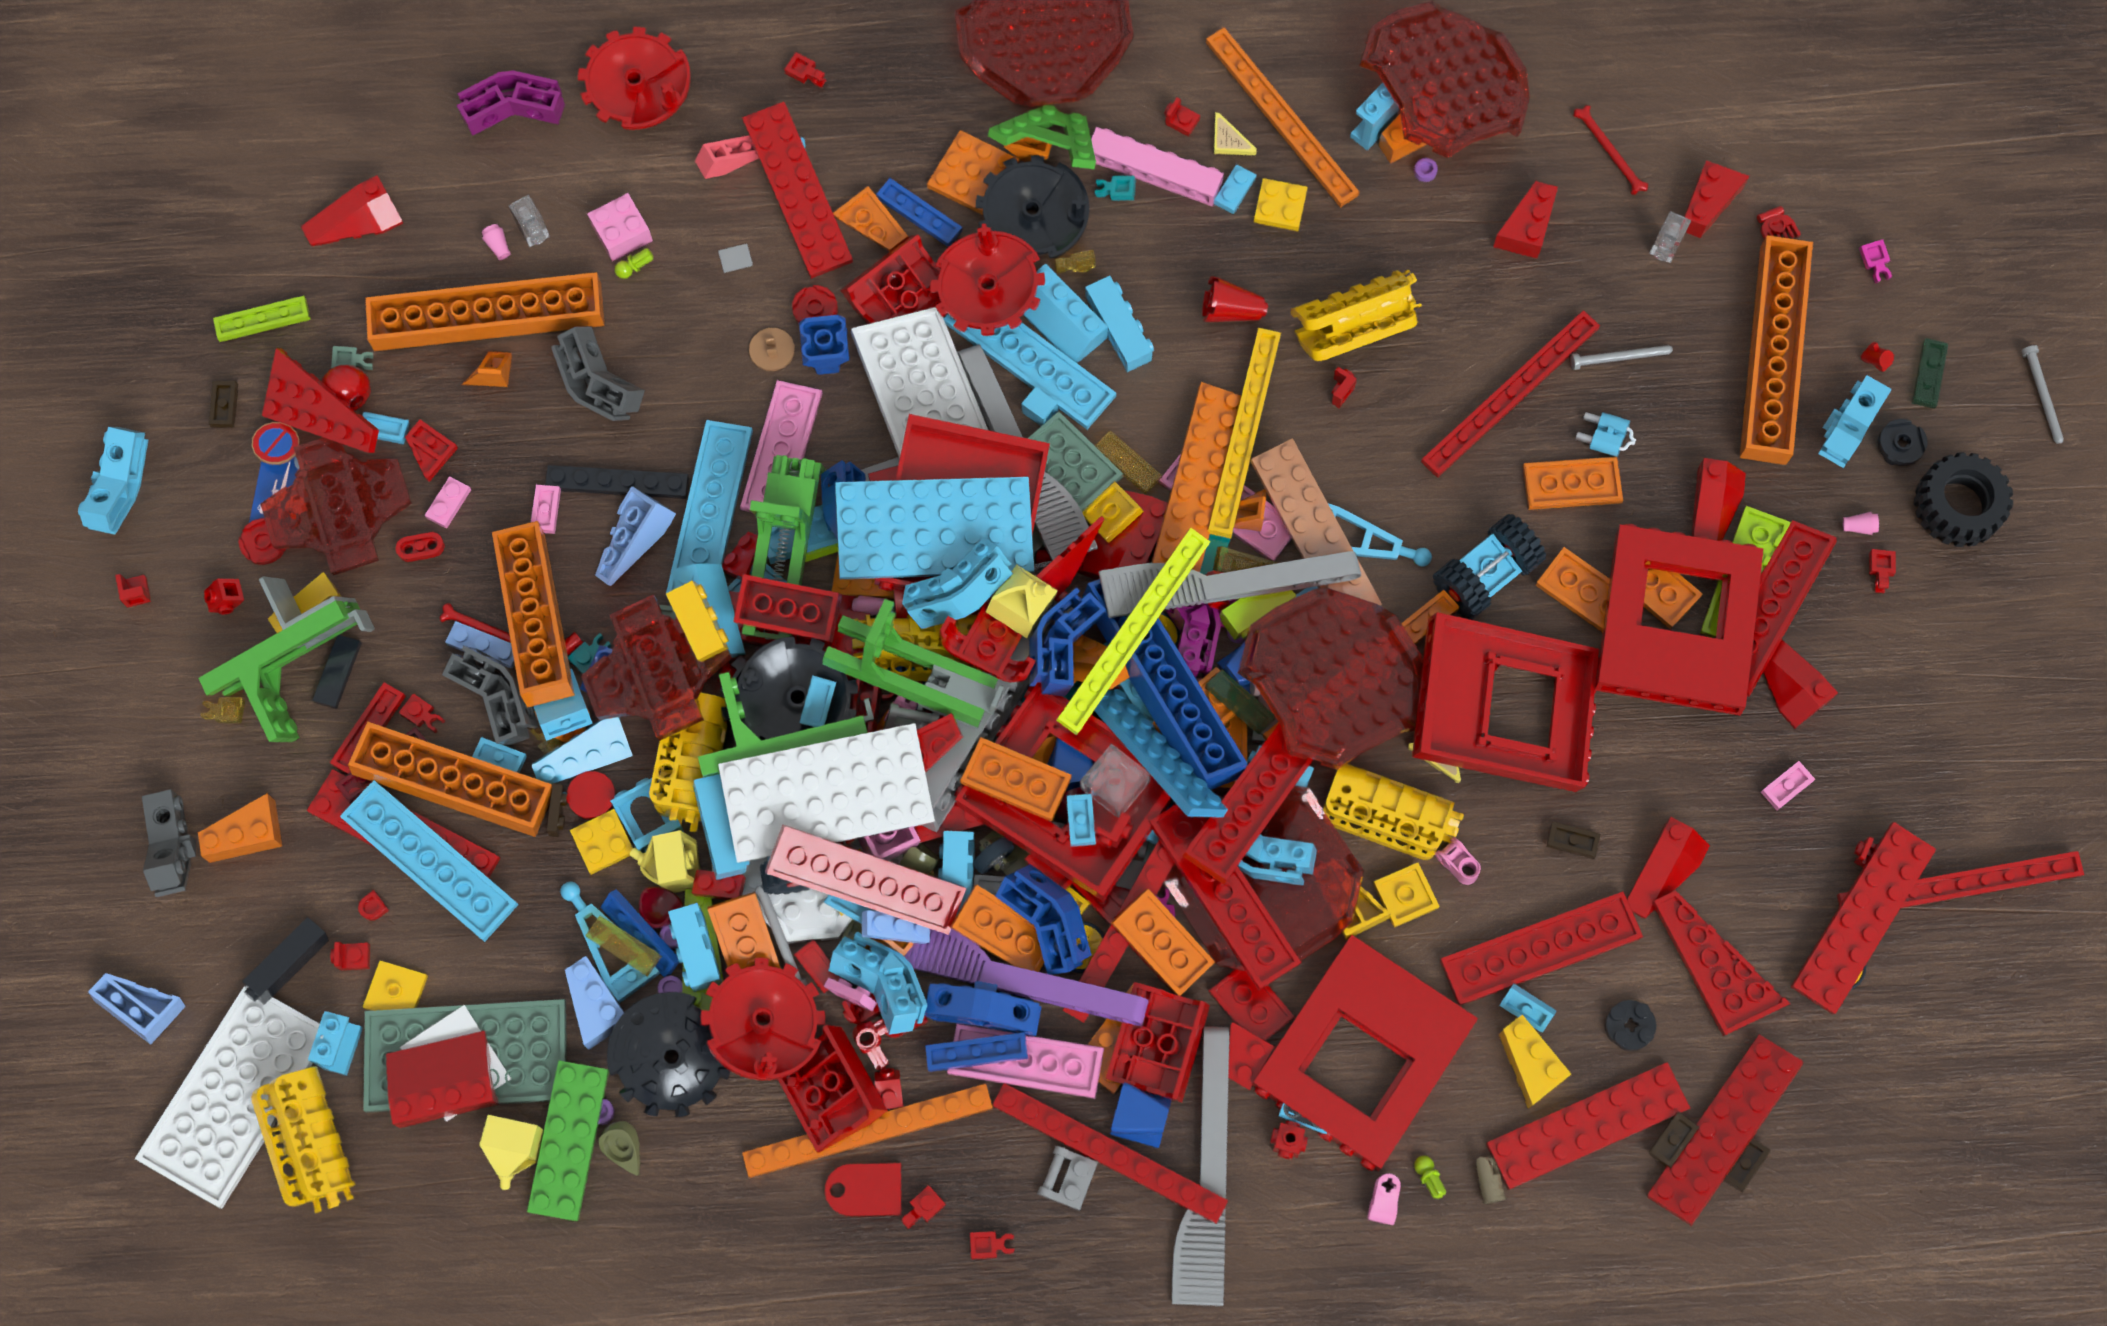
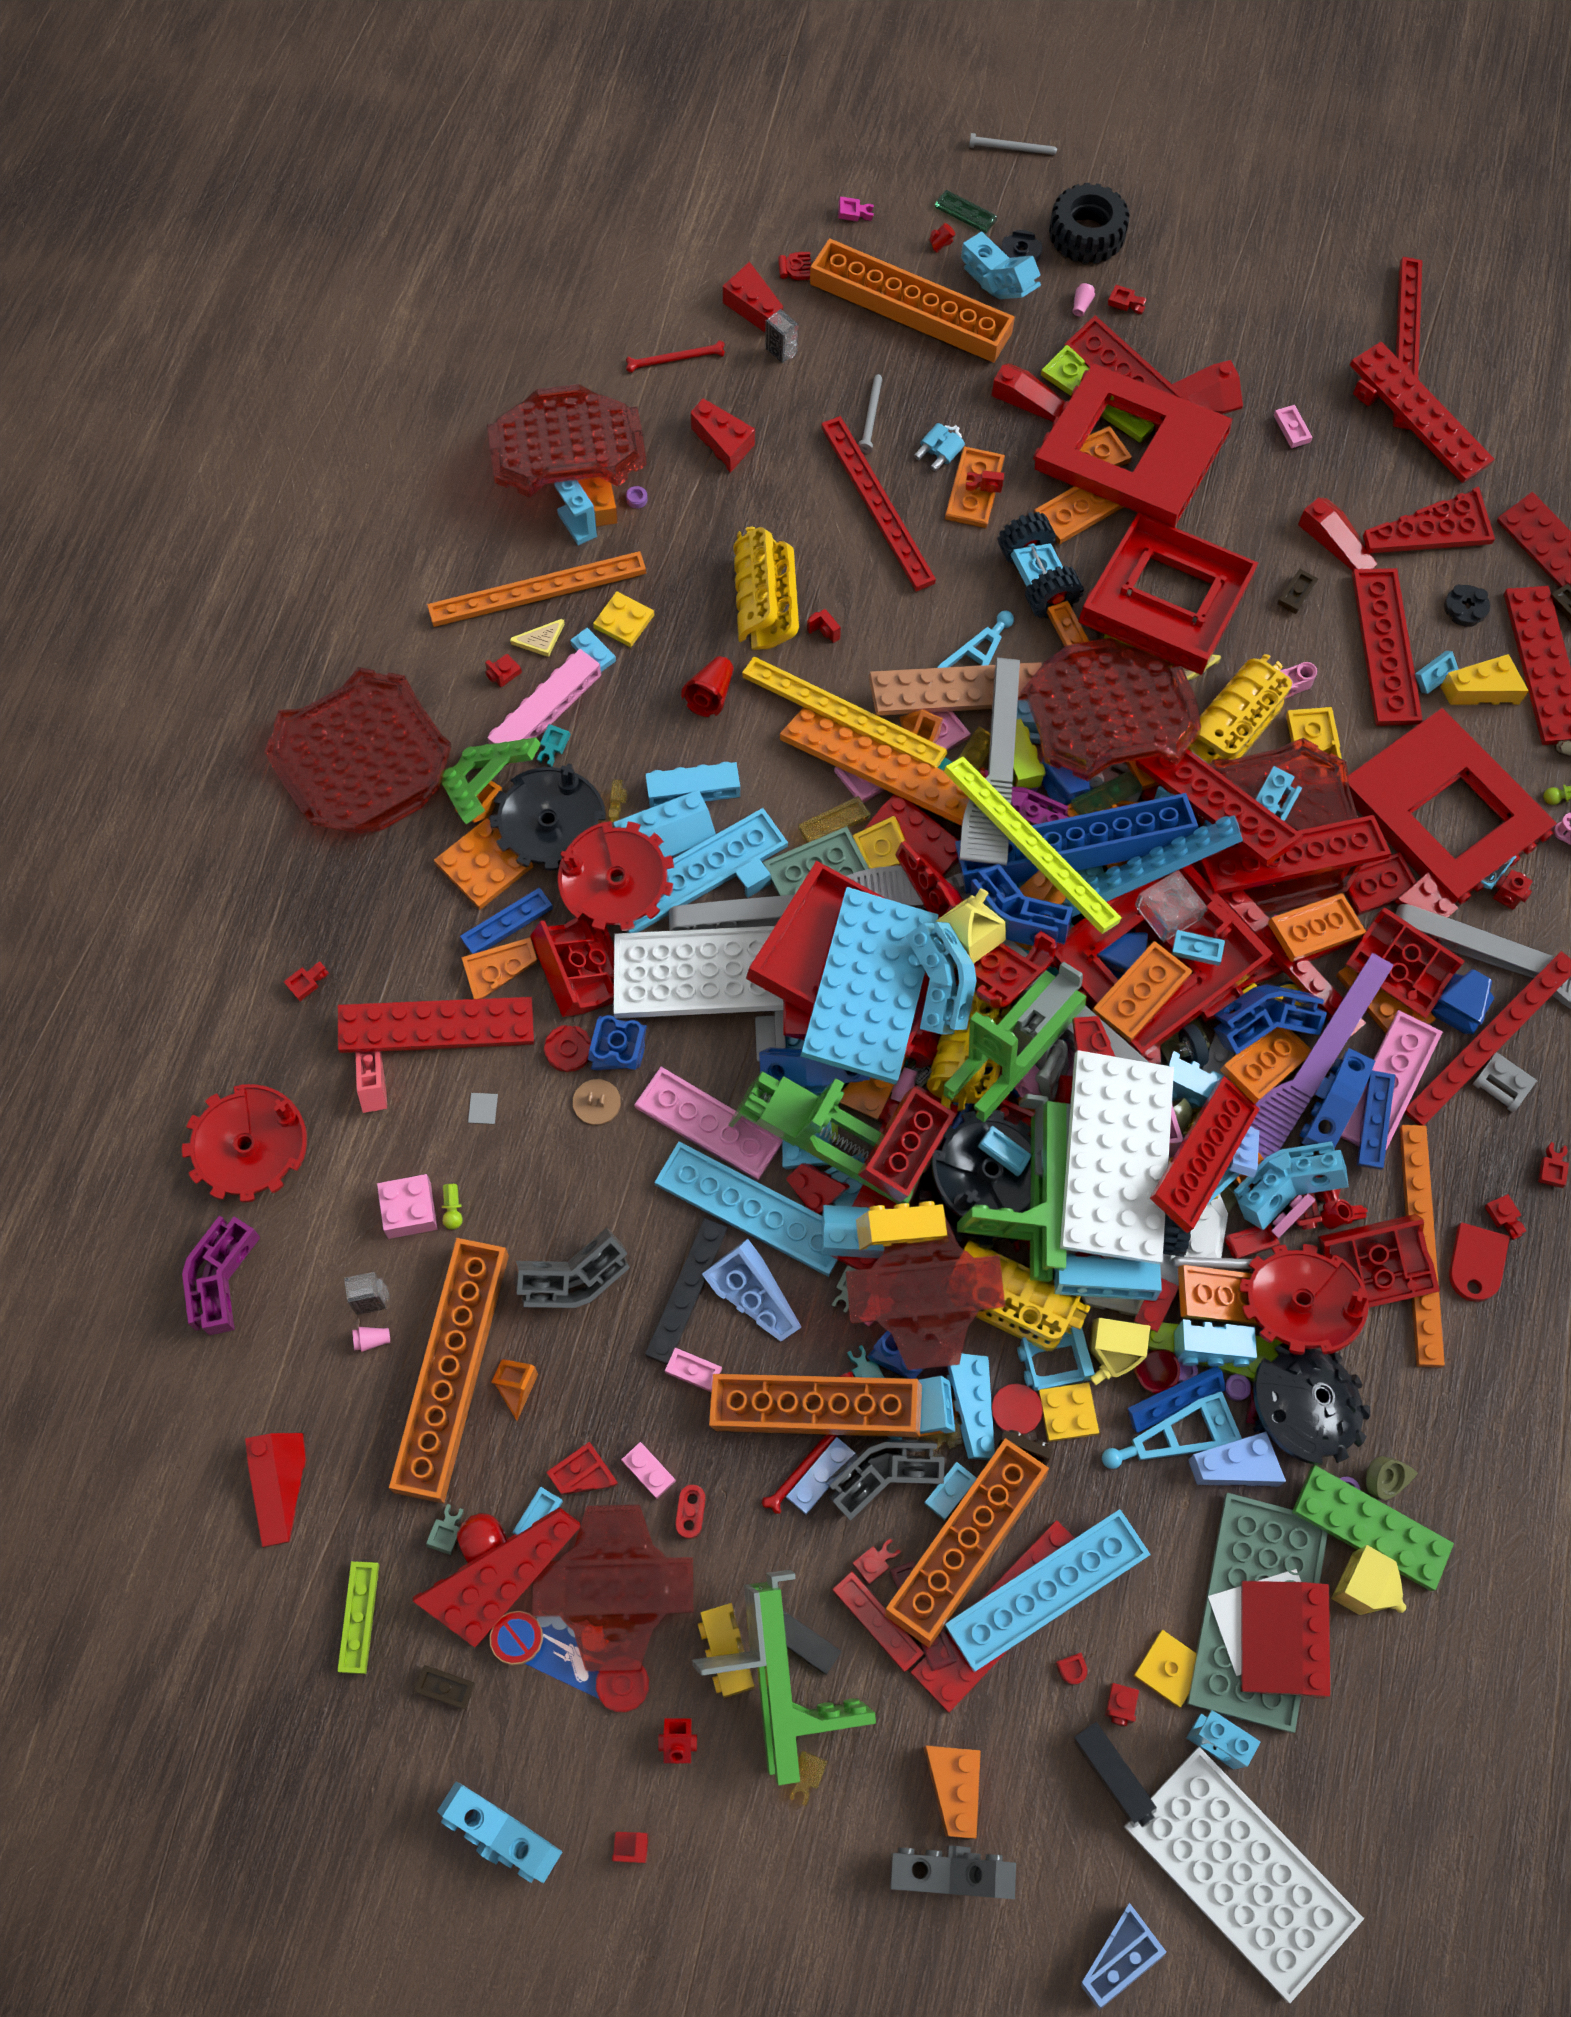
camera: 75 degrees left, 5 degrees down
(307, 1139) = (1319, 1801): yellow piece -> none
(623, 946) = (1190, 1415): clear yellow plate -> none
(889, 1087) = (1384, 1209): red bracket -> none
(1575, 490) = (987, 481): none -> red plate

